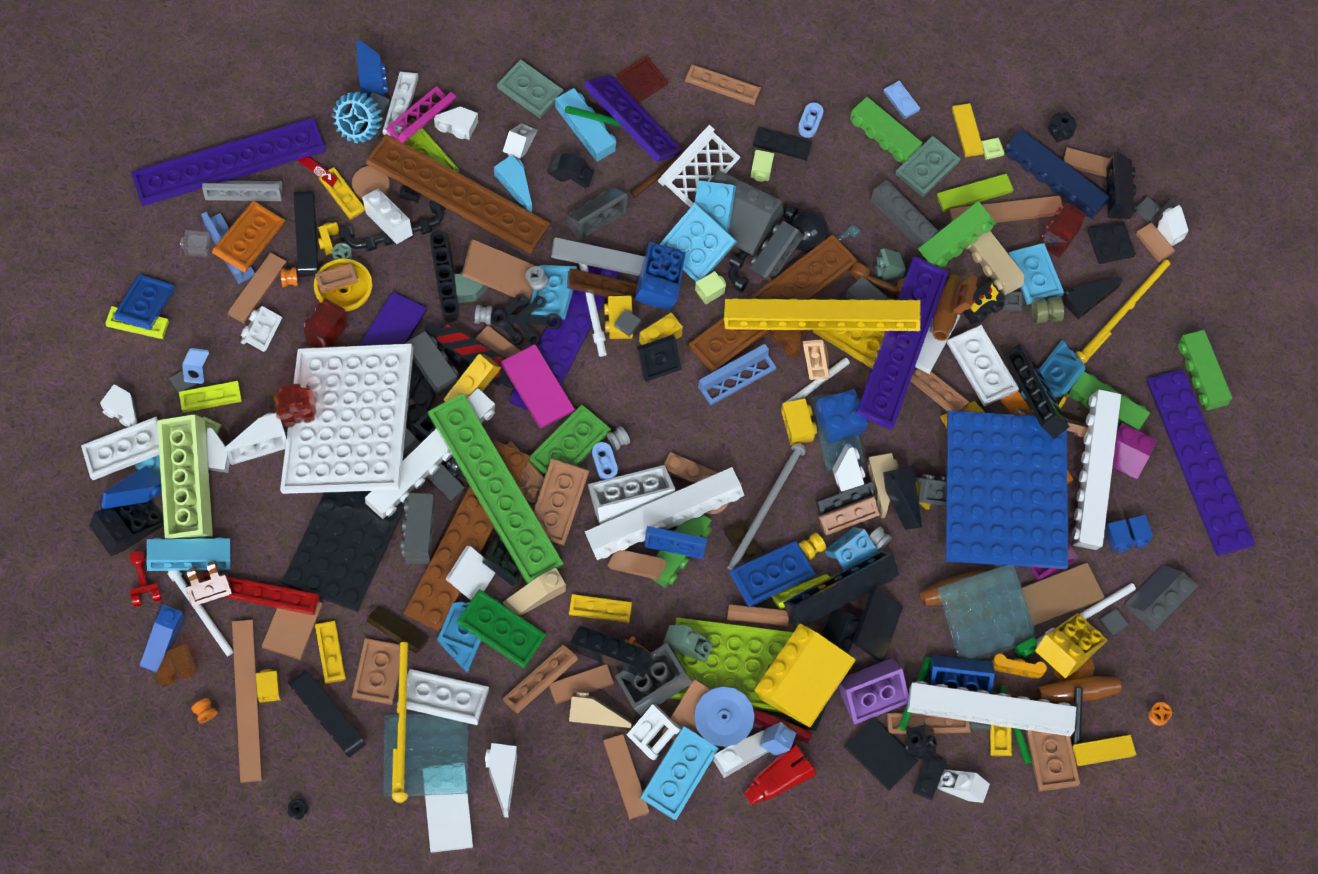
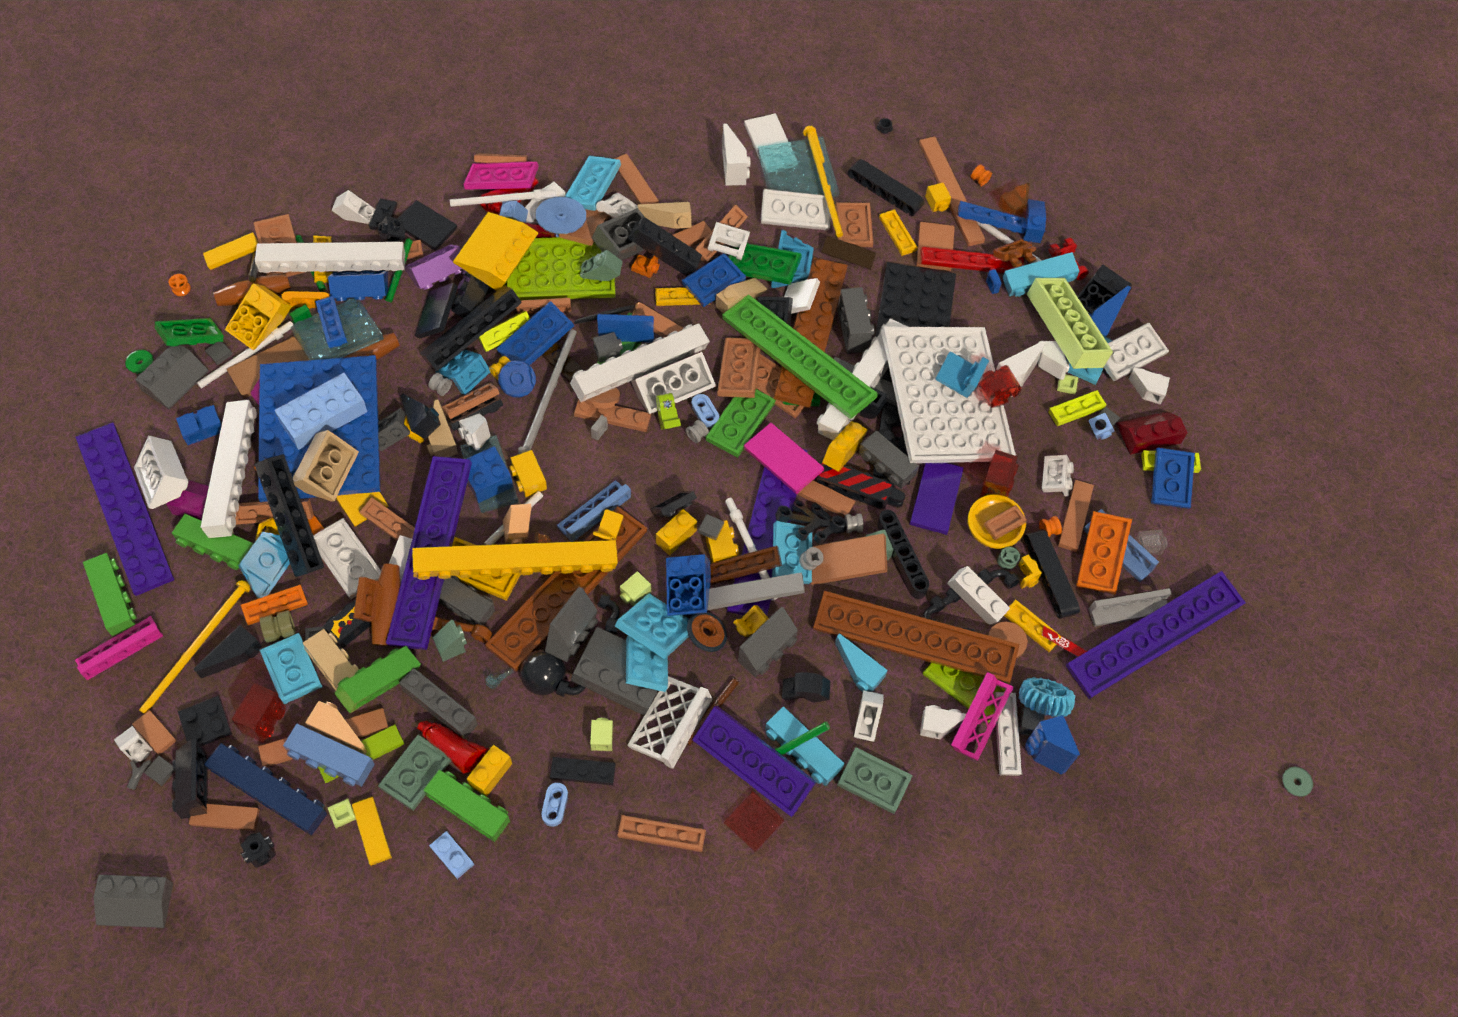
camera: 170 degrees right, 5 degrees down
(142, 357) = (1152, 432): none -> dark red slope
(155, 17) = (1304, 778): none -> sand green piece
(215, 644) = (991, 217): none -> blue plate
(243, 561) = (993, 281): none -> blue tile
(327, 425) = (961, 374): none -> dark azure bracket
(531, 661) = (730, 236): none -> white plate
(562, 614) = (712, 279): none -> blue tile
(608, 238) = (751, 621): none -> yellow bracket
(644, 228) = (700, 639): none -> dark orange wheel
(645, 456) = (666, 411): none -> lime leg
(688, 551) = (612, 312): none -> black piece
(699, 528) = (607, 346): none -> dark grey brick
(718, 459) = (599, 427): none -> light grey tile
(727, 344) = (609, 525): none -> yellow bracket
(748, 749) = (537, 195): none -> white bar
(783, 834) = (499, 158): none -> nougat tile
(786, 800) = (501, 175): none -> dark pink tile
(798, 528) = (516, 379): none -> blue tile
(863, 152) = (489, 771): none -> yellow brick
(887, 167) = (461, 752): none -> red piece
(992, 613) = (331, 322): none -> blue plate
(1000, 209) = (330, 723): none -> light nougat slope
(1001, 428) = (325, 466): none -> tan slope
(1002, 186) = (328, 755): none -> medium blue brick
(1004, 487) = (321, 410): none -> light blue brick
(1051, 332) = (273, 604): none -> orange plate
(1145, 636) = (188, 332): none -> green plate
(1162, 112) = (132, 901): none -> dark grey slope
(1164, 473) = (160, 472): none -> white slope
(1184, 317) = (118, 651): none -> dark pink fence
(1200, 618) = (136, 356): none -> green piece

